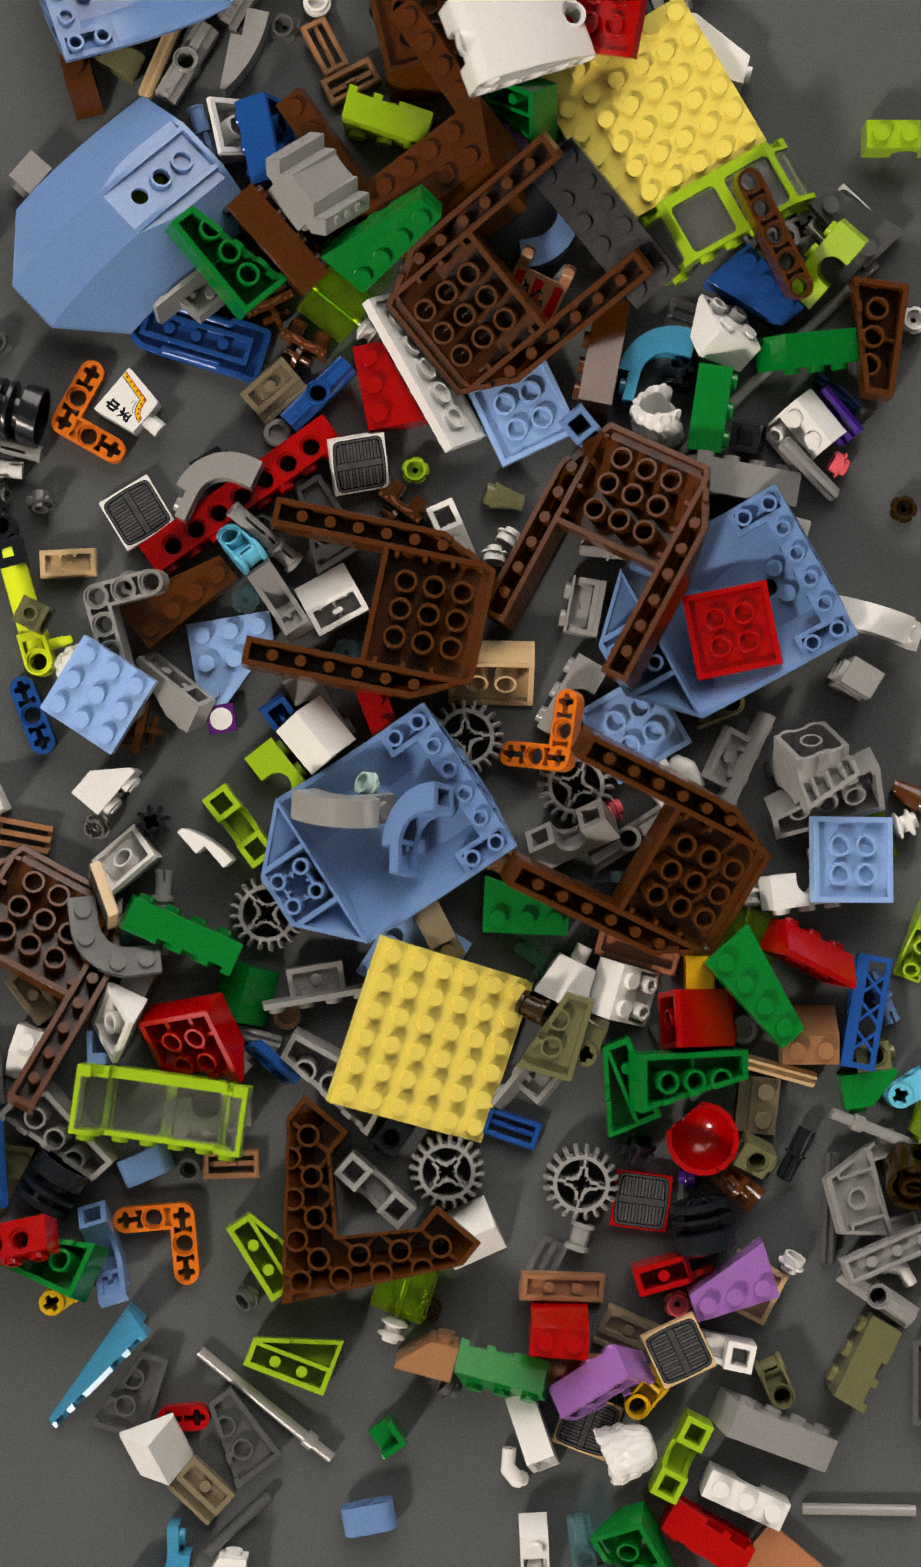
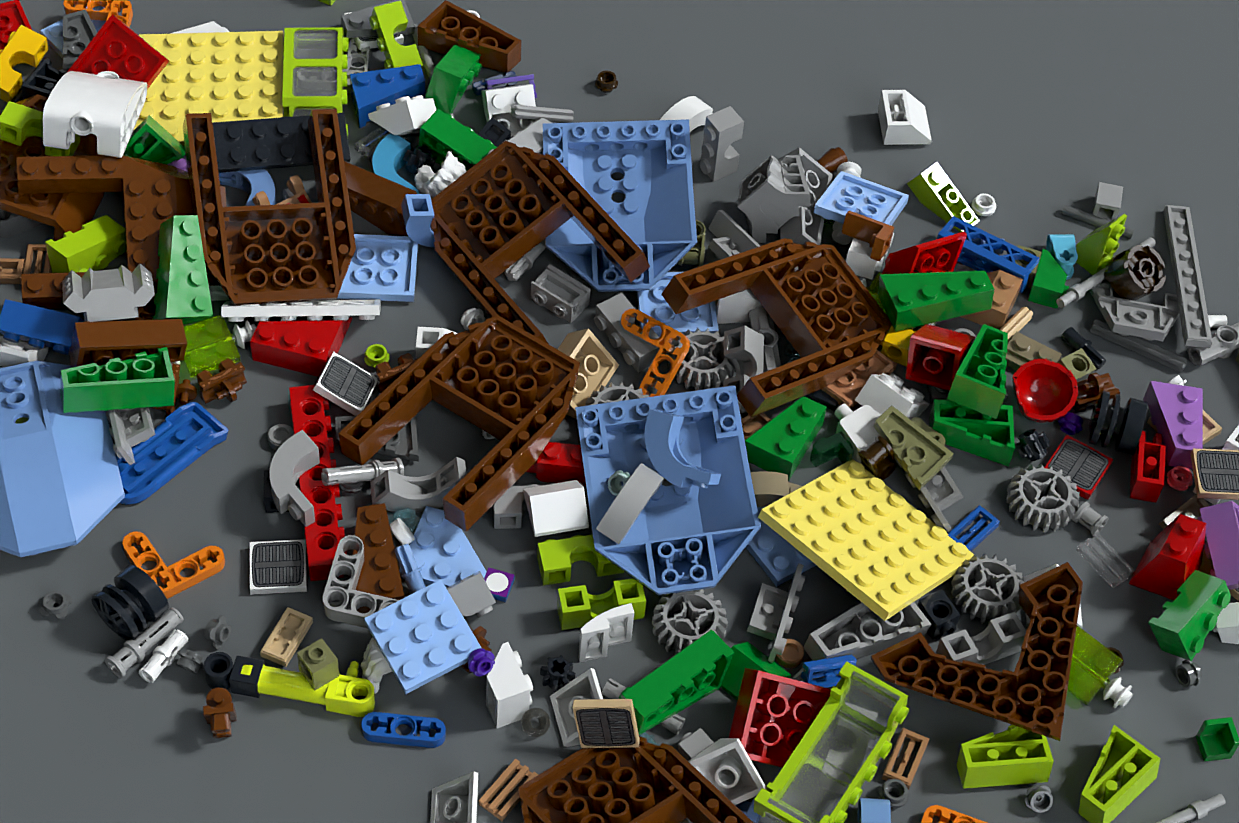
camera: 70 degrees left, 35 degrees down
(99, 759) = (478, 657): none -> dark purple plate
(103, 954) = (645, 757): dark grey plate -> none
(131, 406) = (185, 524): white torso -> none
(183, 639) = (409, 568): none -> medium blue axle
(222, 606) = (401, 531): none -> white tile
(240, 547) = (362, 489): medium azure piece -> none
(273, 390) = (243, 420): dark tan plate -> none
(277, 712) = (520, 534): blue slope -> none
(332, 381) = (270, 389): blue piece -> none
(332, 600) = (444, 444): white slope -> none
(430, 1355) = (1154, 663): medium nougat slope -> none
(501, 497) = (435, 310): olive cone -> none
(561, 1286) = (1130, 550): medium nougat tile -> none
(732, 630) = (641, 198): red plate -> none
(760, 225) = (356, 43): reddish brown beam -> none
(805, 896) = (869, 231): none -> dark orange bracket
(838, 464) = (548, 100): coral plate -> none

